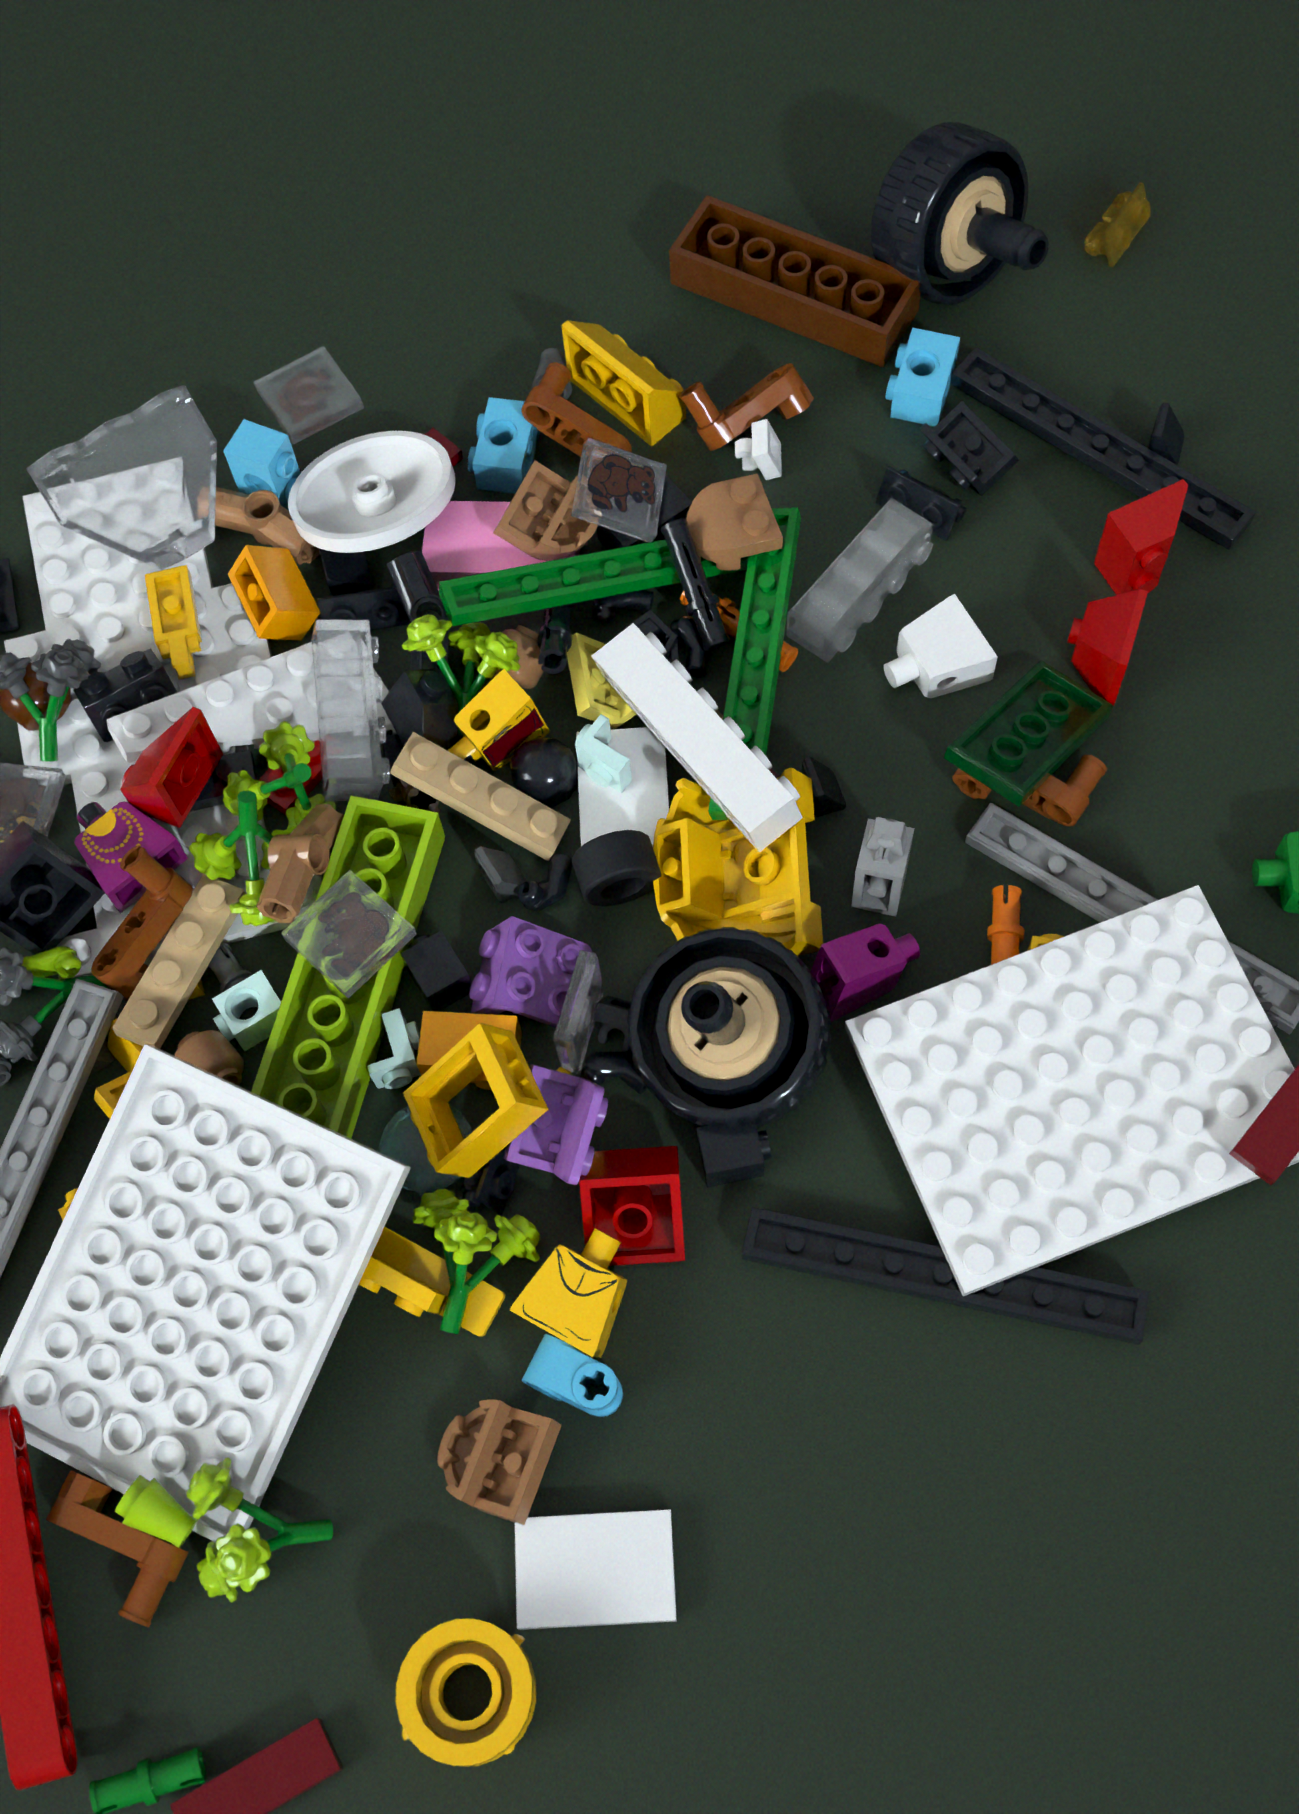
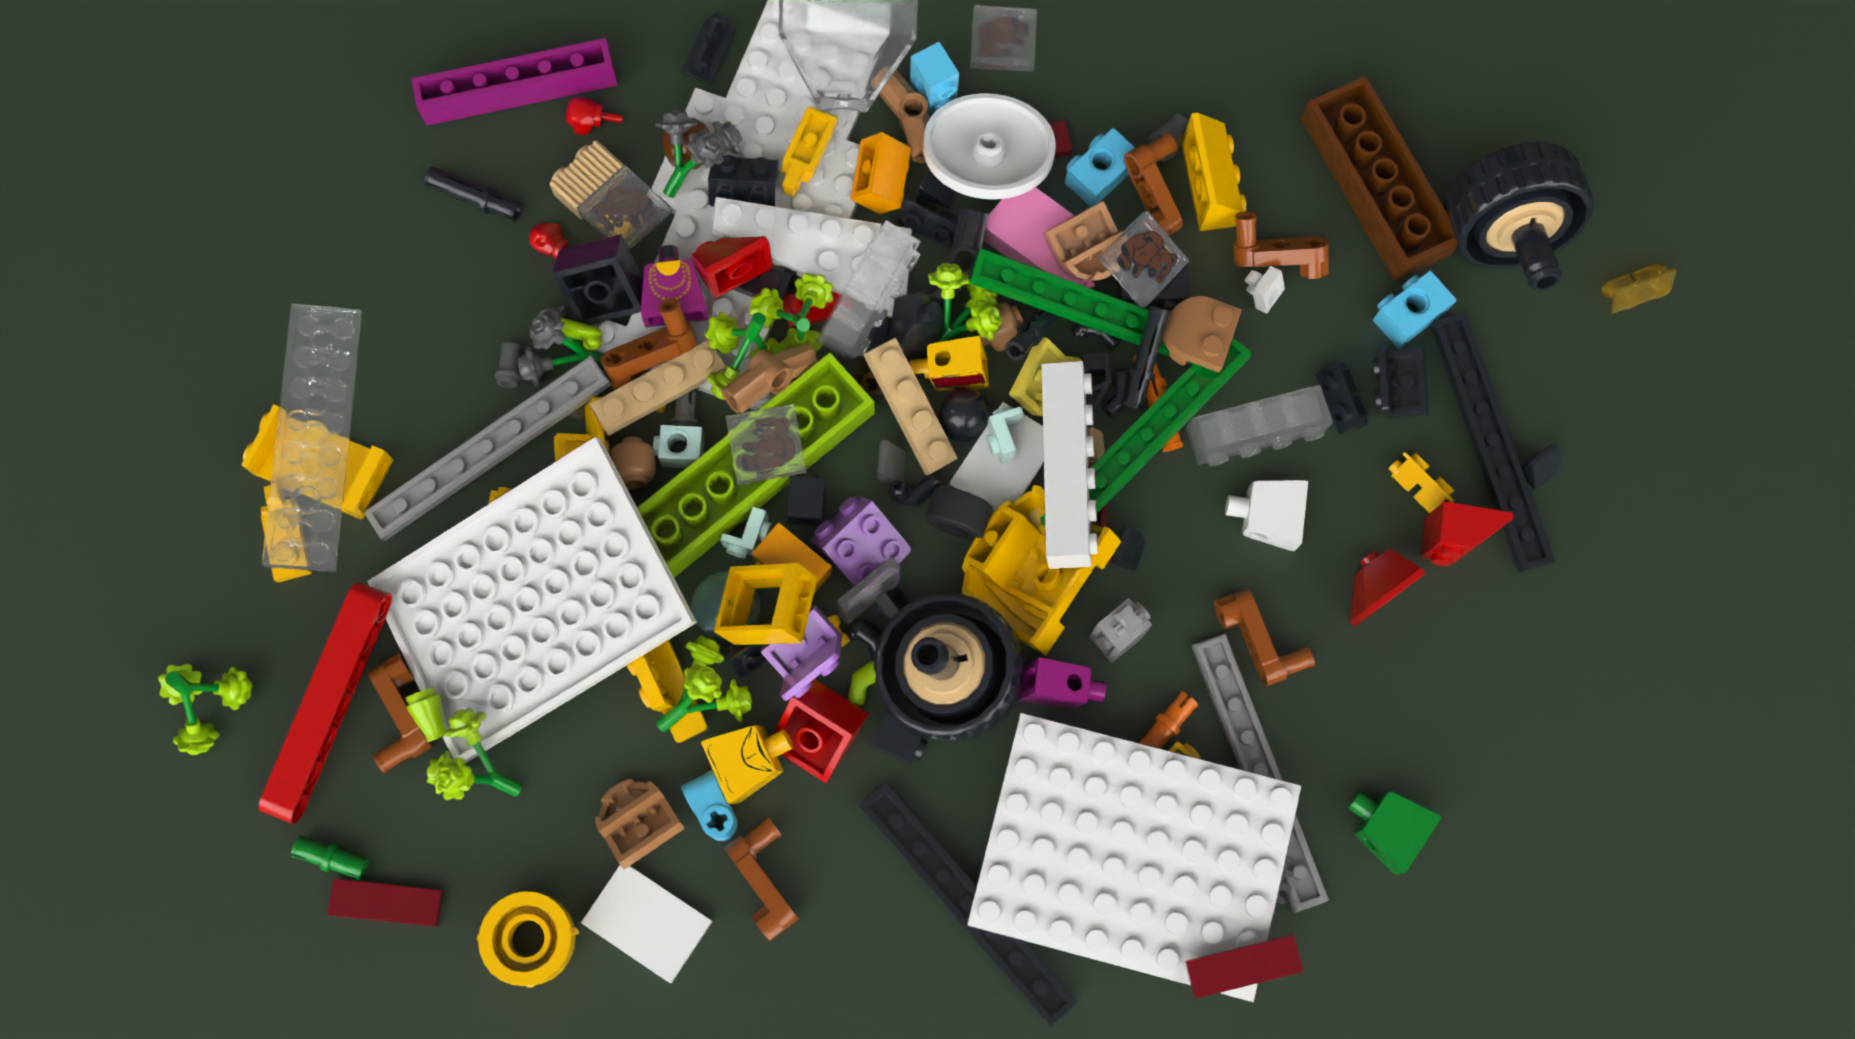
camera: 25 degrees right, 10 degrees up
(641, 1118) = (860, 681): none -> lime arm
(737, 1441) = (776, 913): none -> dark orange beam
(1028, 733) = (1282, 607): dark green tile -> none
(1049, 522) = (1414, 472): none -> yellow hinge

